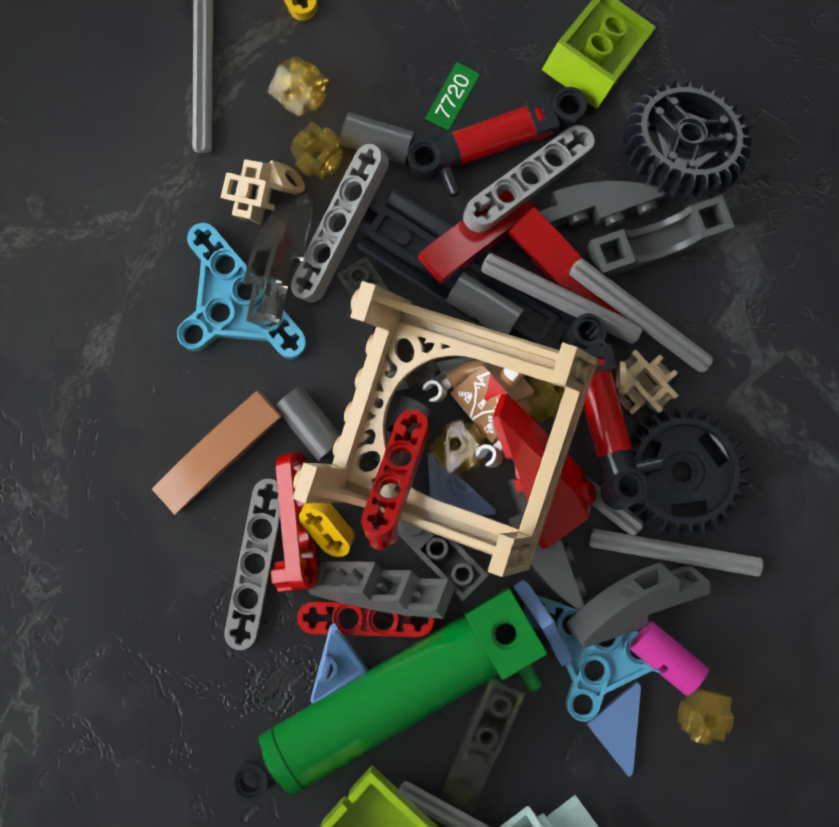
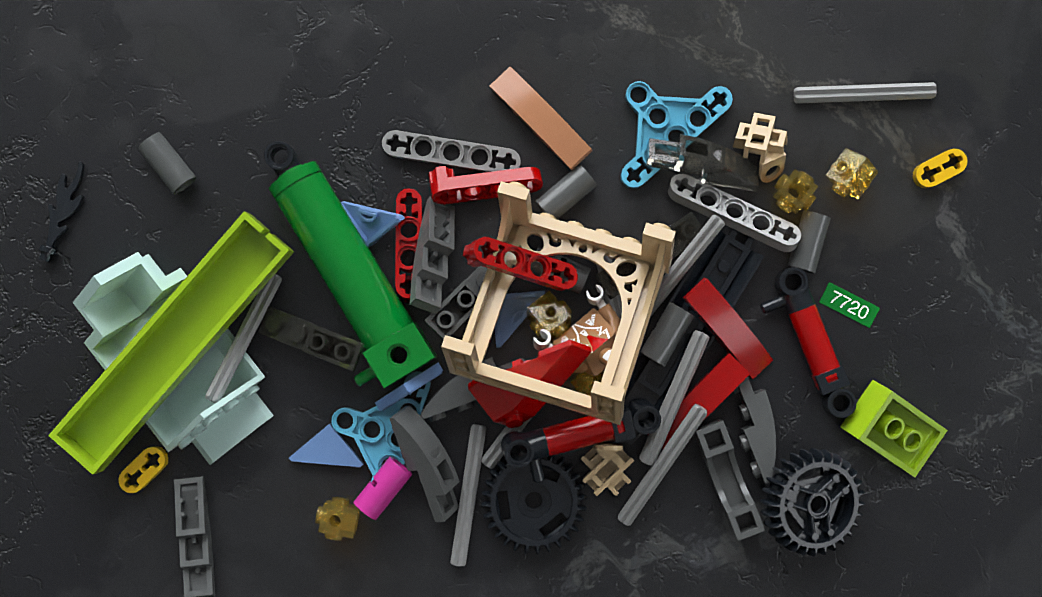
camera: 90 degrees right, 5 degrees up
(327, 528) = (480, 210): yellow beam -> none
(388, 273) = (688, 258): none -> light grey axle
(519, 188) = (765, 363): light grey beam -> none

